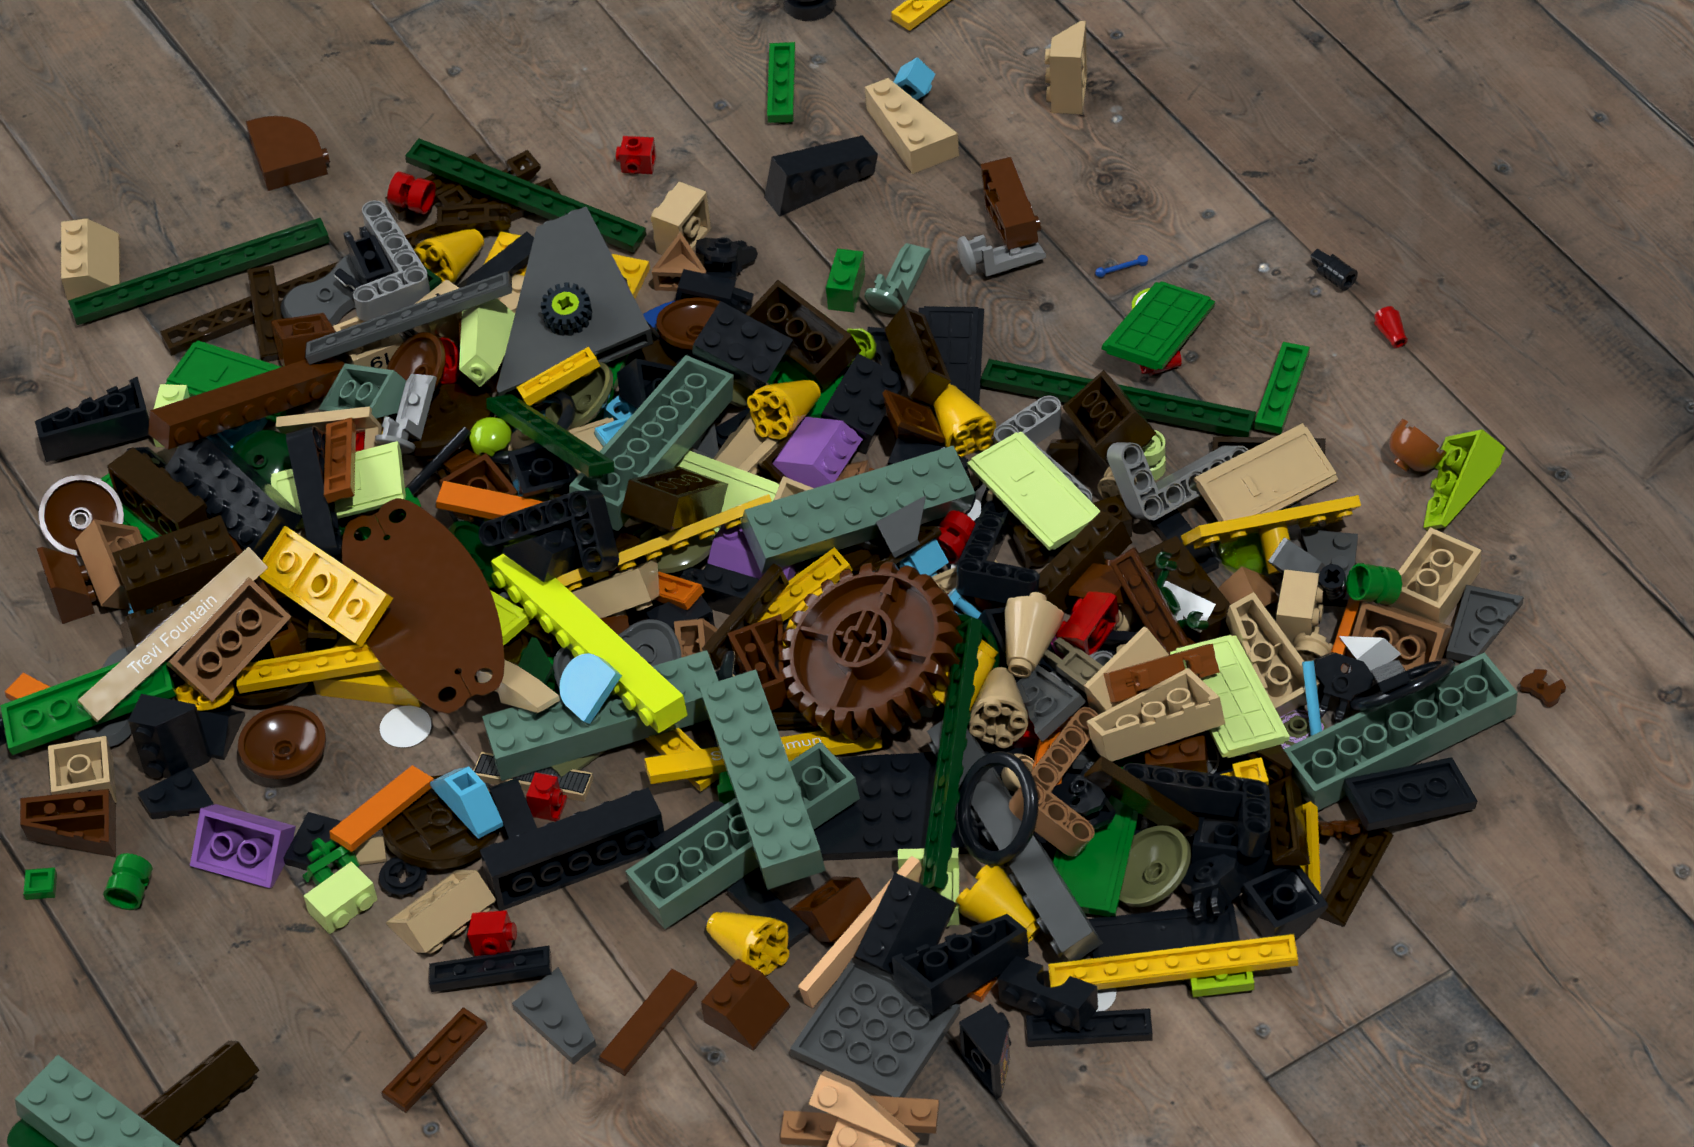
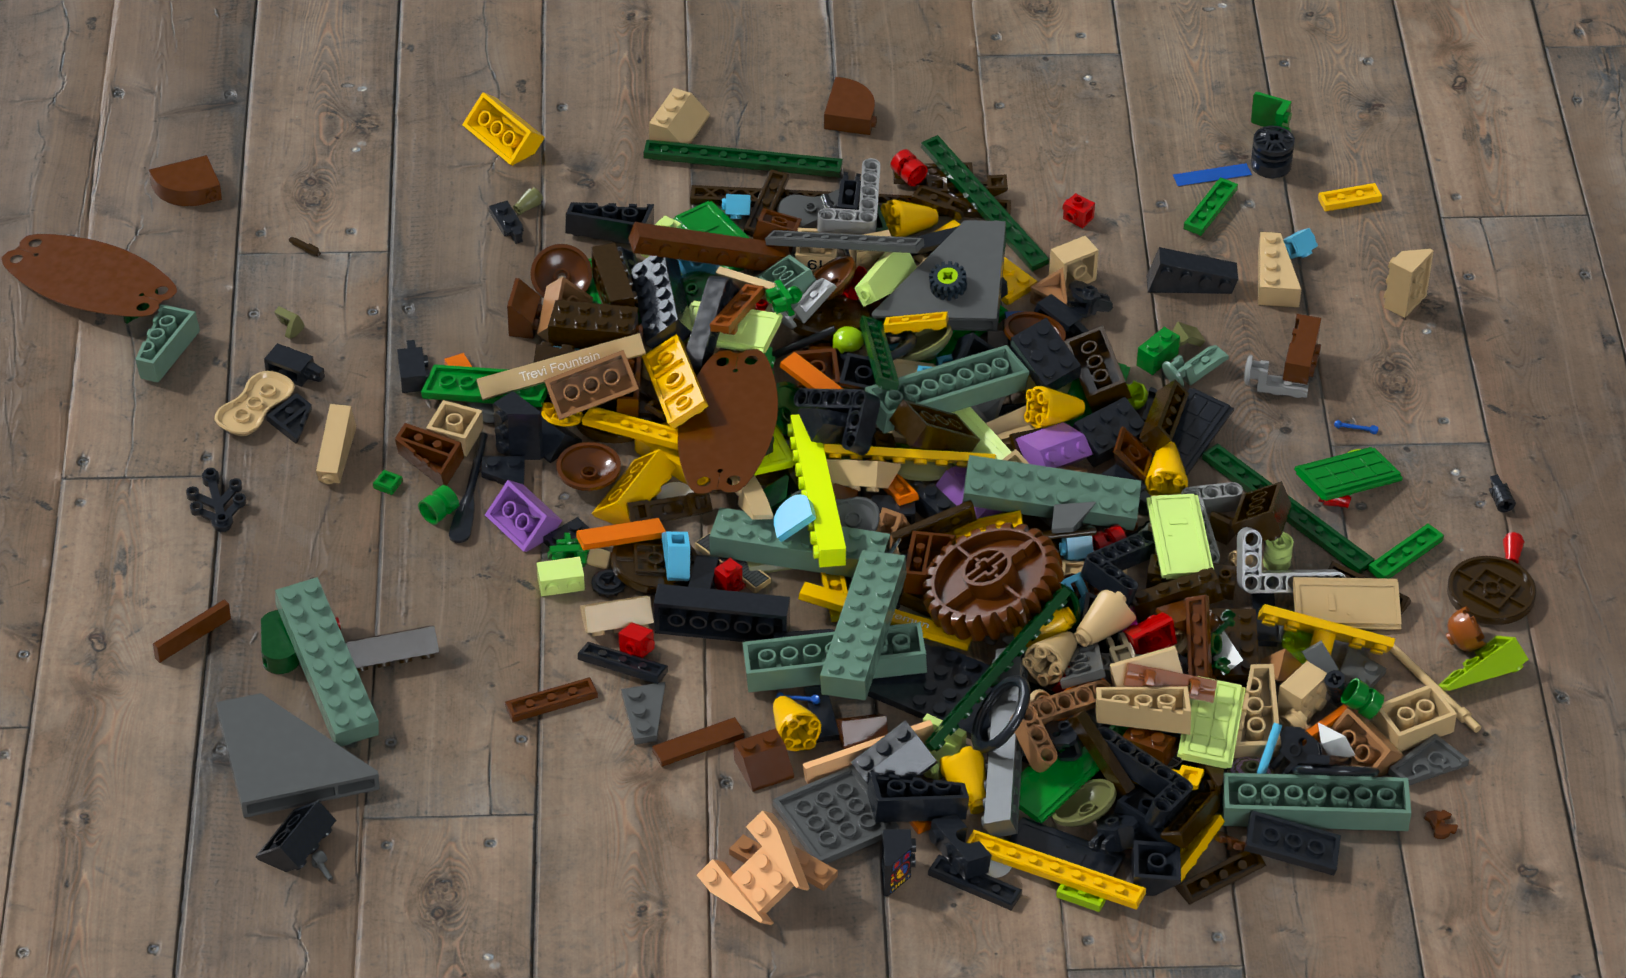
camera: 25 degrees right, 5 degrees down
(165, 879) = (463, 519): none -> black piece
(235, 332) = (737, 205): none -> medium azure brick
(354, 743) = (637, 483): none -> yellow slope
(388, 418) = (783, 298): none -> green hips
(414, 746) = (670, 508): none -> dark brown slope
(752, 898) = (815, 698): none -> blue hinge
(753, 44) = (1211, 174): none -> blue sticker
(866, 243) = (1188, 334): none -> olive tile
(1403, 383) = (1492, 589): none -> dark brown plate
(1421, 530) = (1463, 714): none -> tan bar

